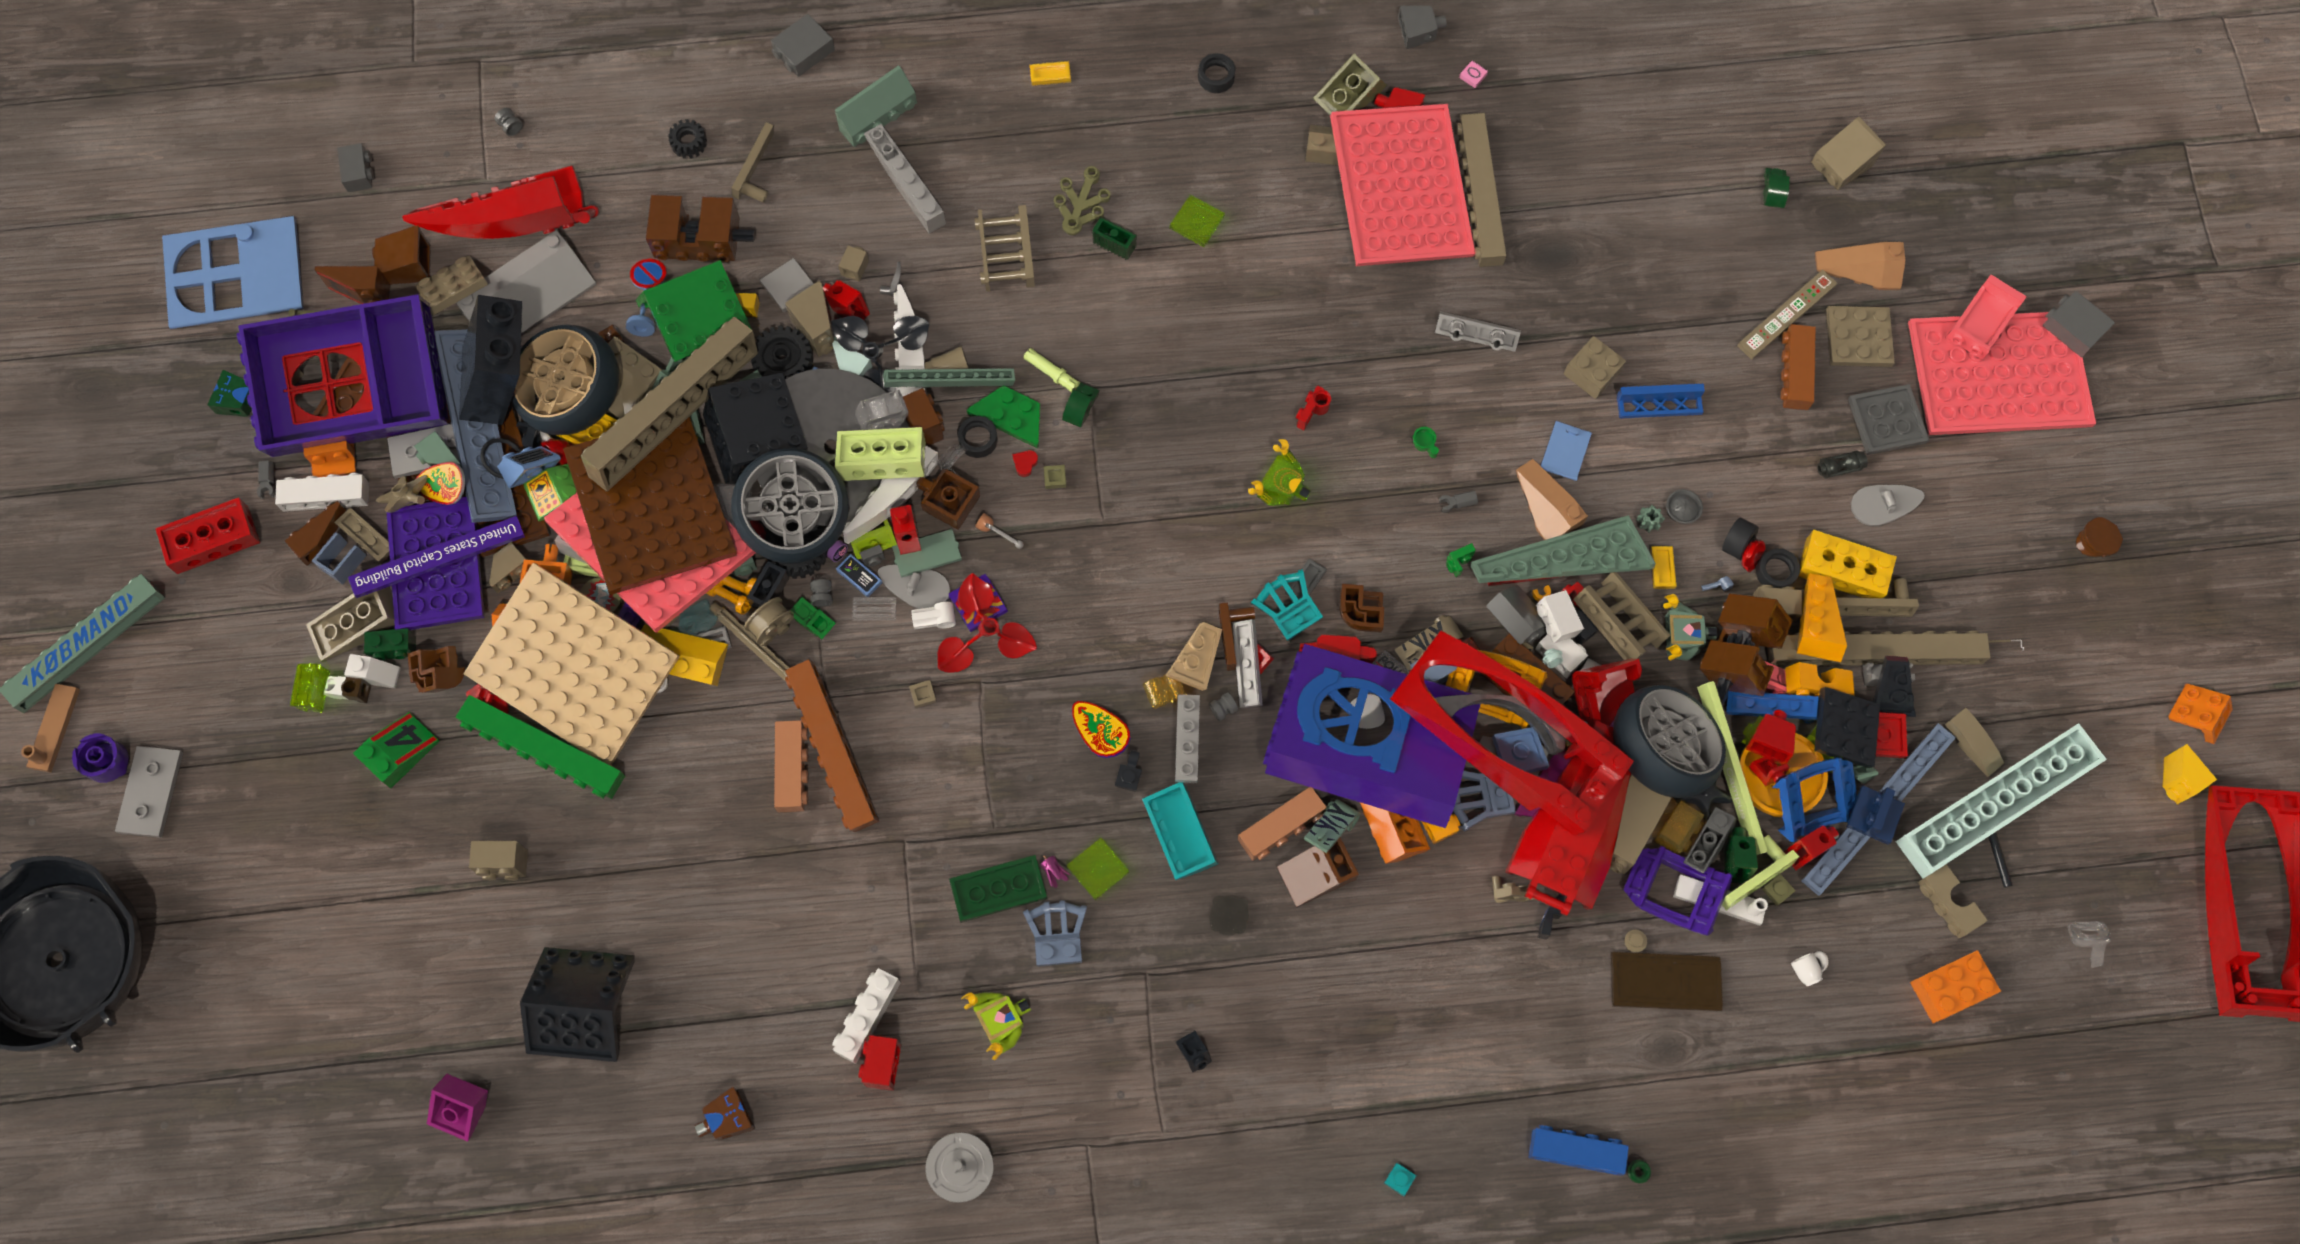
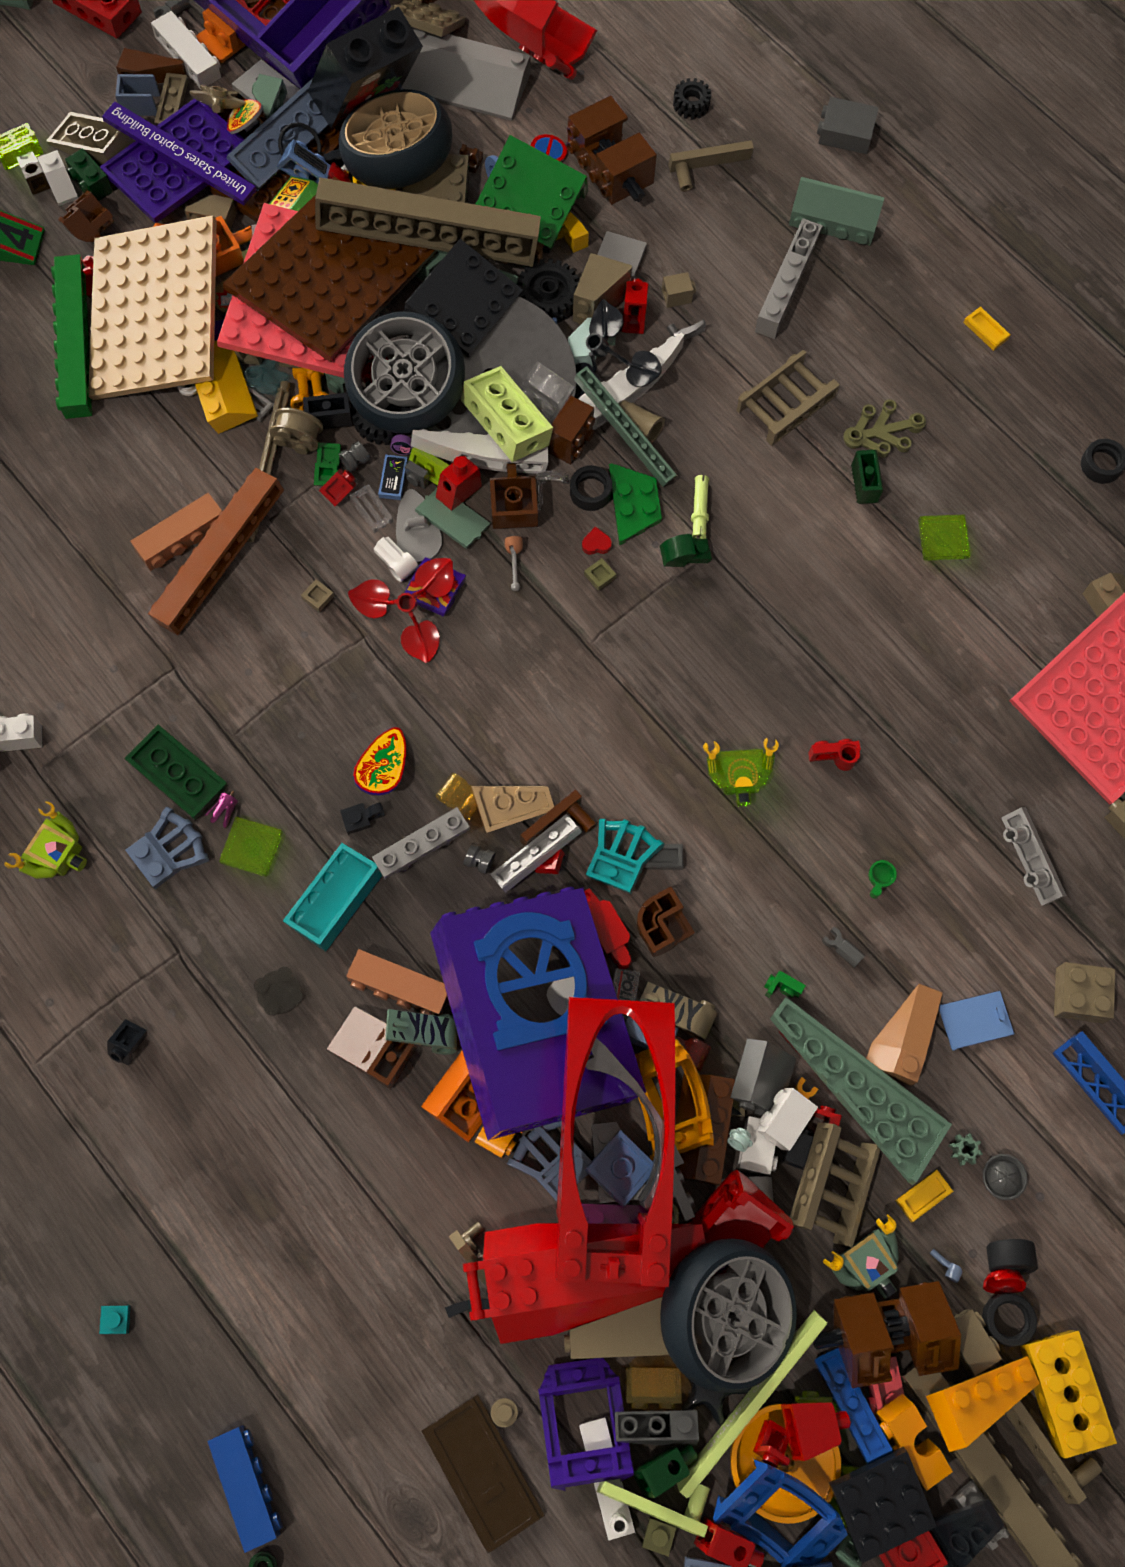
camera: 55 degrees right, 0 degrees up
(840, 620) = (338, 486): none -> red bracket

